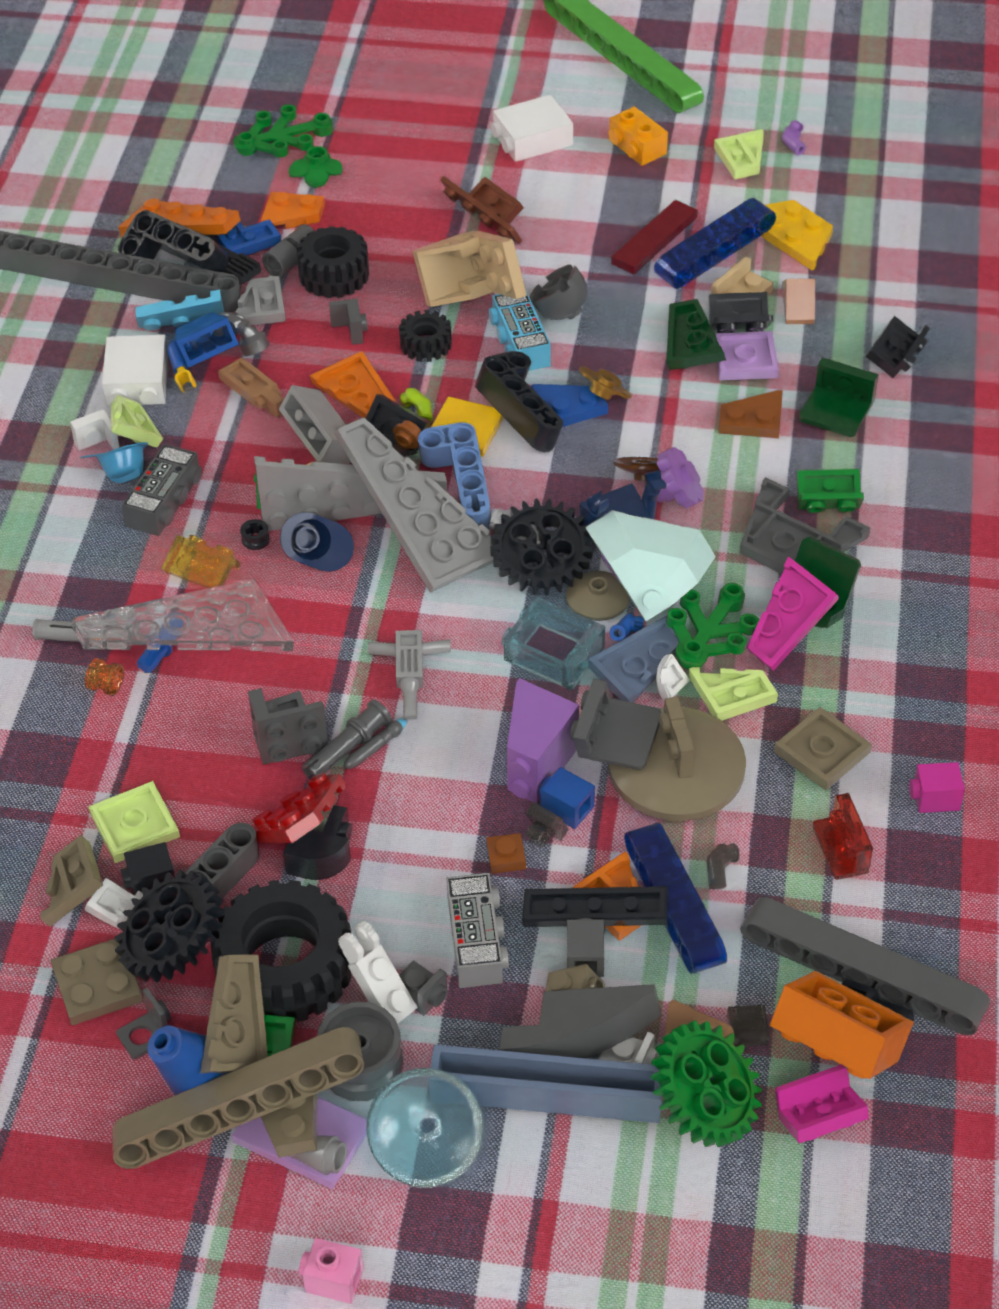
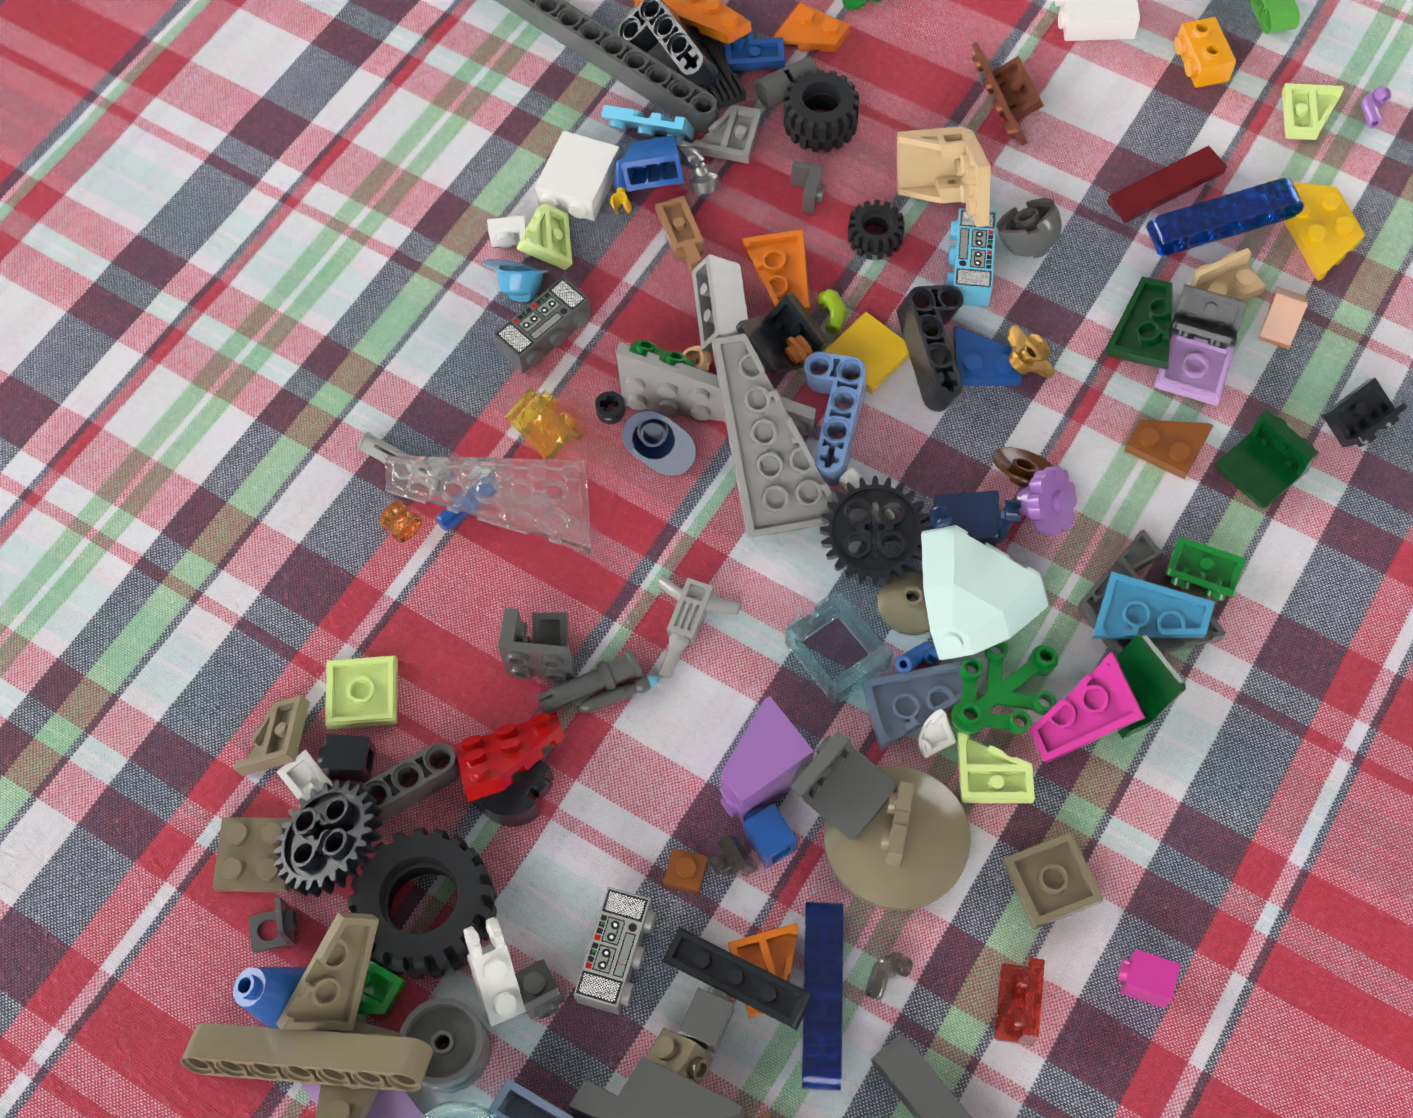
camera: 25 degrees right, 15 degrees up
(787, 525) = (1150, 609): none -> dark azure wing

